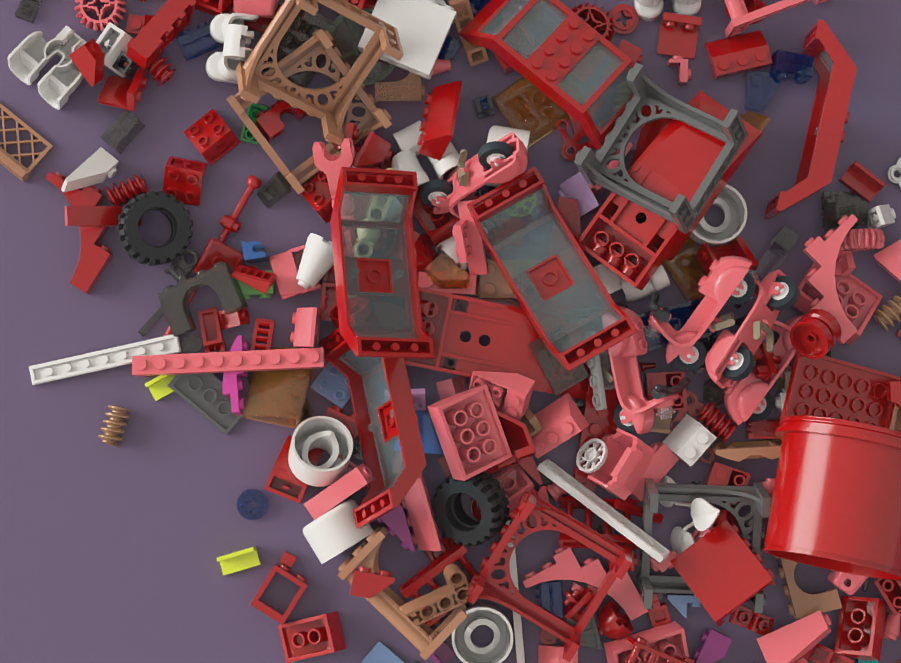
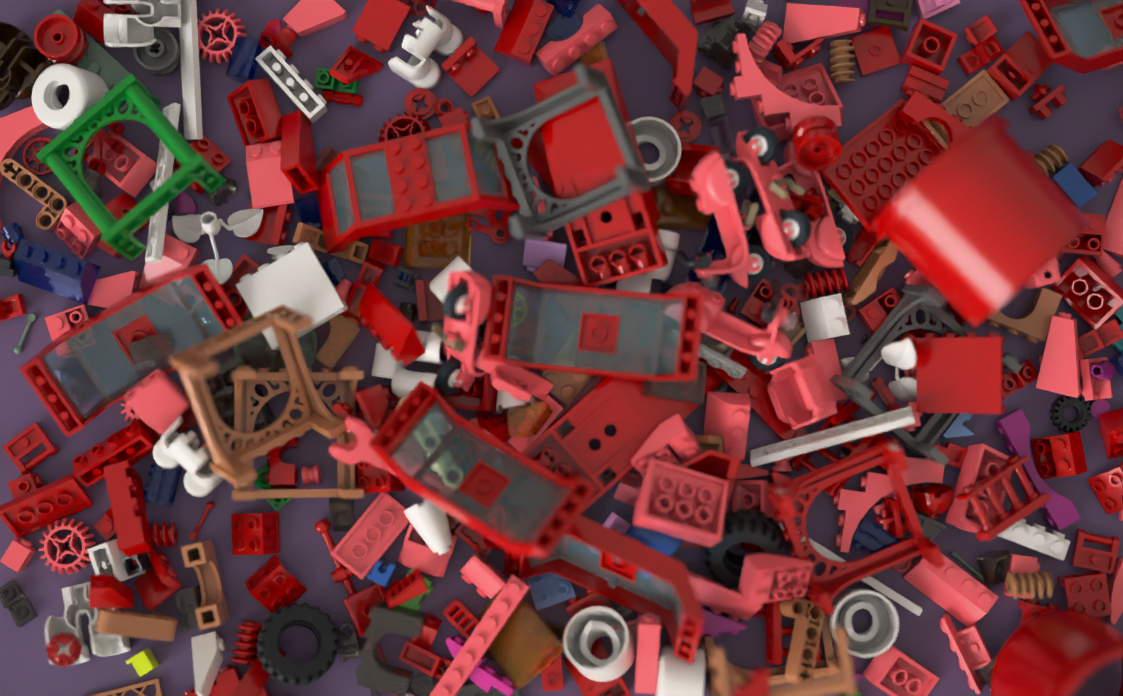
camera: 55 degrees left, 0 degrees up
(17, 64) = (63, 659): none -> red gear
(56, 126) = (143, 662): none -> neon yellow panel
(81, 99) = (138, 625): none -> nougat beam
(164, 113) = (214, 605): none -> nougat arch
(176, 93) = (193, 536): none -> red hinge
(271, 434) = (553, 675): none -> red brick
(274, 223) = (371, 535): none -> coral tile
(285, 145) = (311, 475): none -> coral wheel
(461, 126) = (408, 310): none -> clear smoke cone
(465, 543) = (773, 578): none -> coral slope
(468, 76) = (370, 273): none -> red slope
(477, 136) = (428, 304): none -> red panel
(492, 76) = (385, 253): none -> red bracket
(592, 455) = (777, 411): white wheel -> none
(639, 37) = (443, 101): none -> red plate
(656, 70) = (485, 108): none -> nougat slope
(667, 528) = (885, 394): none -> red axle
(684, 73) = (505, 86): coral bracket -> none
(764, 227) = (687, 117): none -> red gear
(778, 106) = (560, 54): none -> coral arch
(801, 222) = (708, 83): none -> red brick
(866, 263) = (785, 56): none -> red bracket

